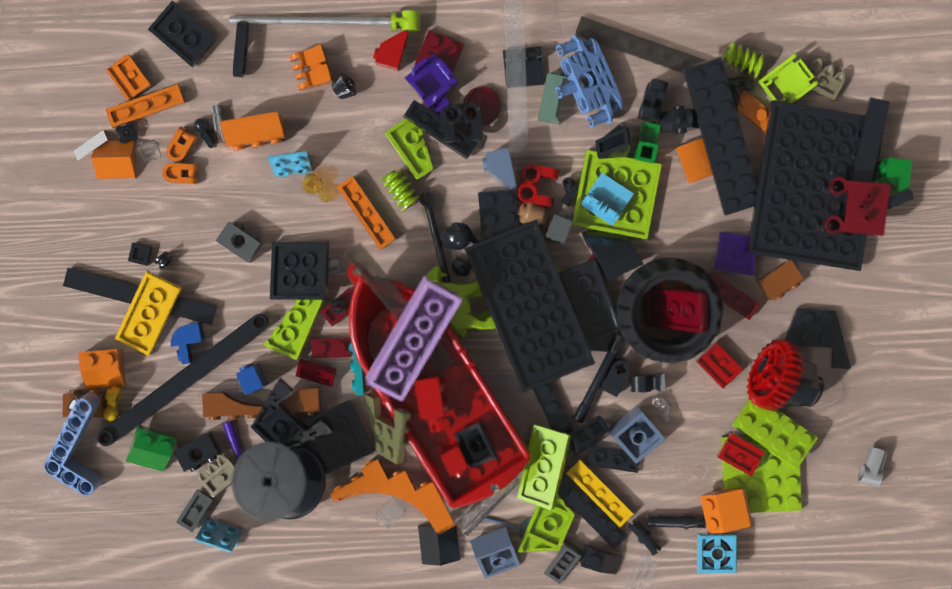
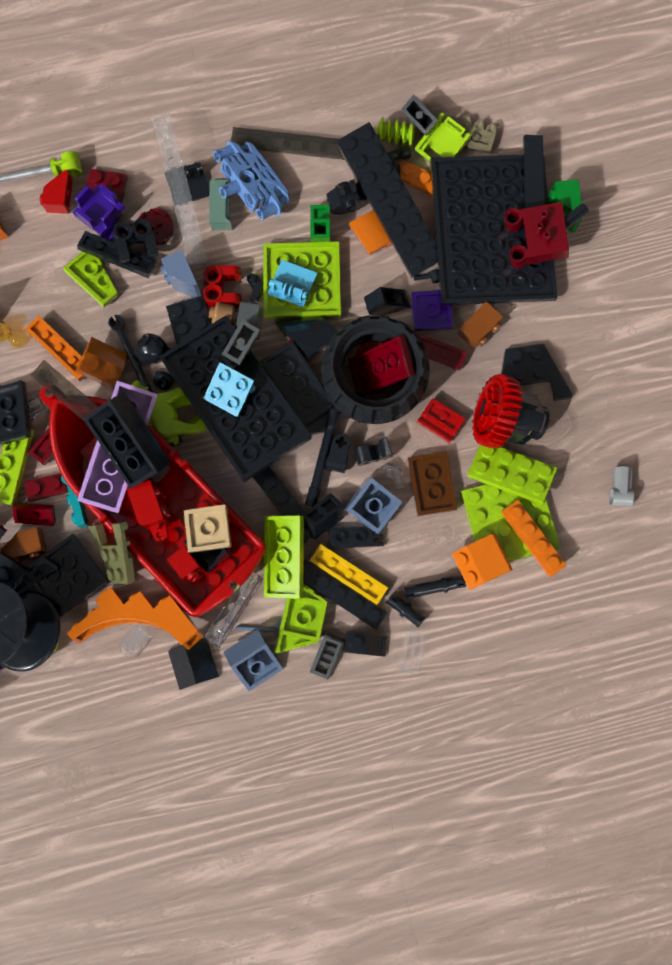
camera: 10 degrees left, 10 degrees down
(338, 310) = (45, 445): black hinge -> none
(344, 86) = (16, 235): black piece -> none
(400, 189) = (87, 318): lime piece -> none
(407, 239) = (101, 363): none -> orange slope
(426, 340) = (127, 440): none -> black slope
(483, 435) = (207, 528): none -> tan plate
(526, 301) = (229, 389): none -> medium azure hinge
(548, 259) = (241, 342): none -> dark grey brick
(615, 143) = (288, 231): black slope -> none
(652, 100) = (317, 182): black piece -> none
(694, 236) = (386, 301): none -> black slope
(696, 424) = (432, 484): none -> reddish brown plate
(715, 552) = (483, 609): medium azure piece -> none
(740, 454) = (483, 501): red plate -> none
(747, 218) = (434, 275): none -> black hand
(773, 50) = (420, 114): none -> black slope
(779, 498) = (533, 538): none -> orange plate

